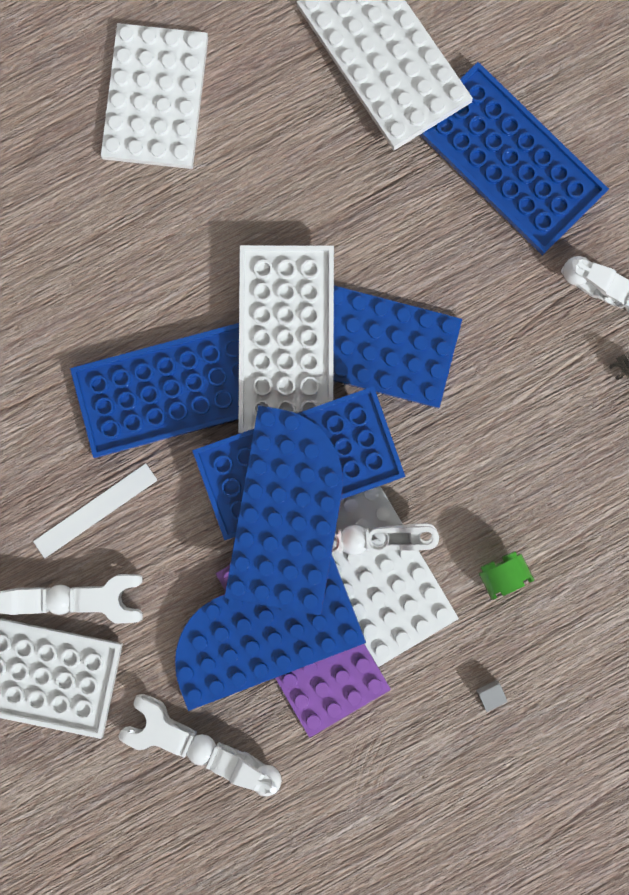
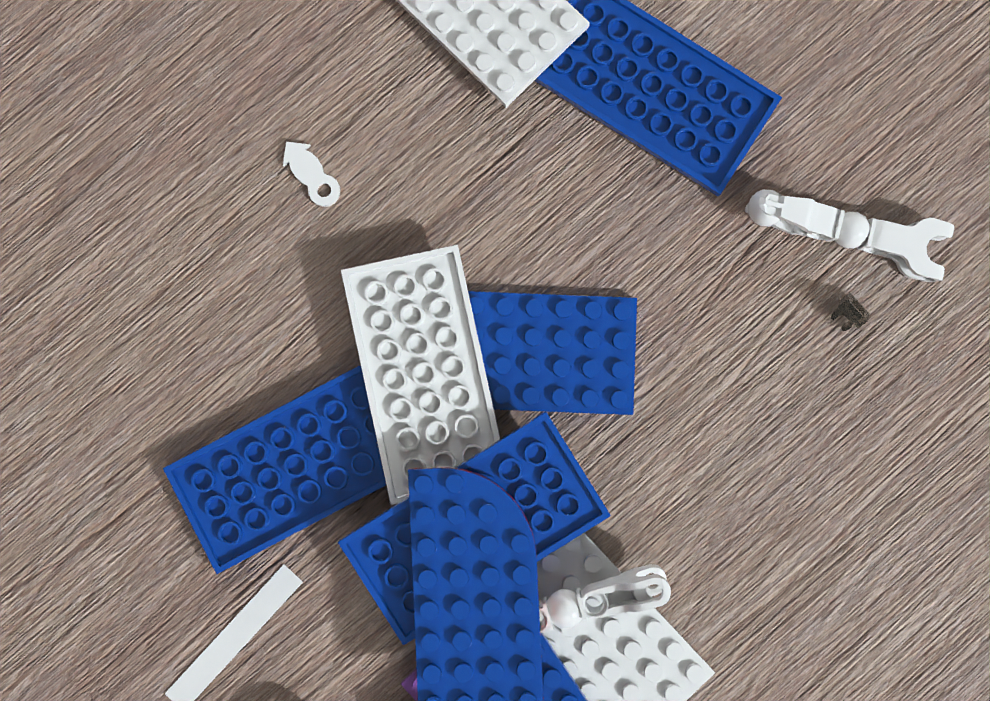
camera: 15 degrees left, 0 degrees up
(154, 96) = (194, 103): white plate -> none
(232, 169) = (310, 173): none -> white brick
(506, 575) = (761, 608): bright green brick -> none

